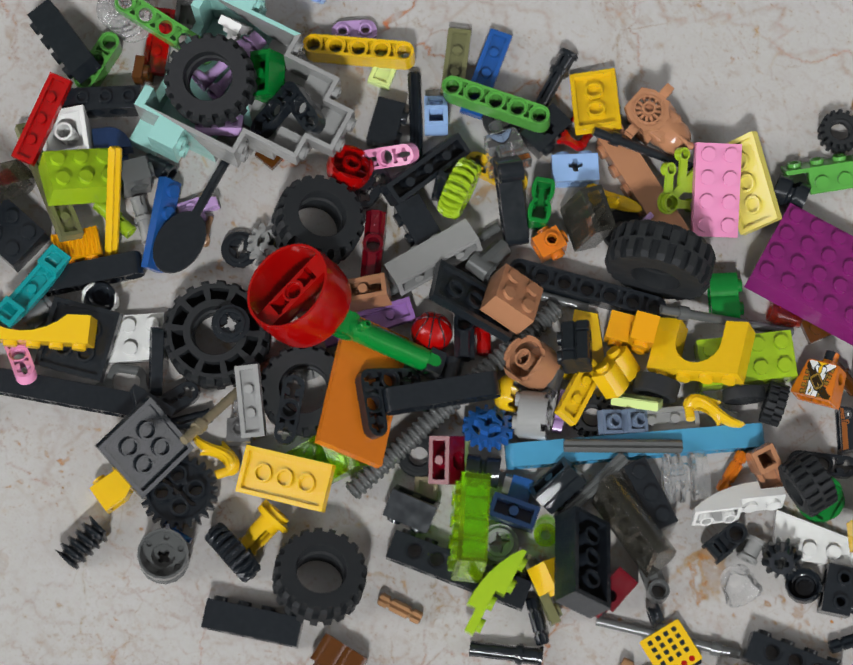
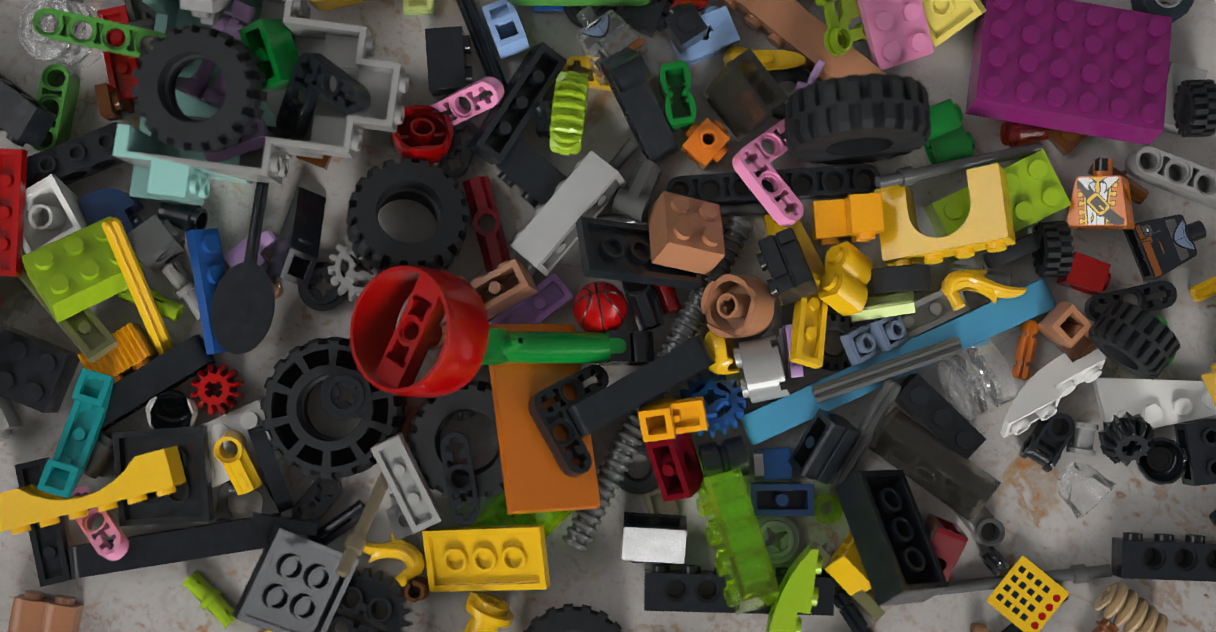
camera: 20 degrees left, 10 degrees up
(76, 441) = (210, 598): none -> lime pin
(129, 297) = (205, 389): none -> red gear
(135, 351) = (238, 465): none -> yellow piece
(231, 489) = (422, 583): none -> reddish brown pin
(235, 210) = (299, 239): none -> black slope
(455, 423) = (669, 417): none -> light orange brick
(562, 156) = (684, 26): none -> black brick
(585, 269) = (761, 162): none -> bright pink beam
(793, 432) = (1087, 275): none -> red brick

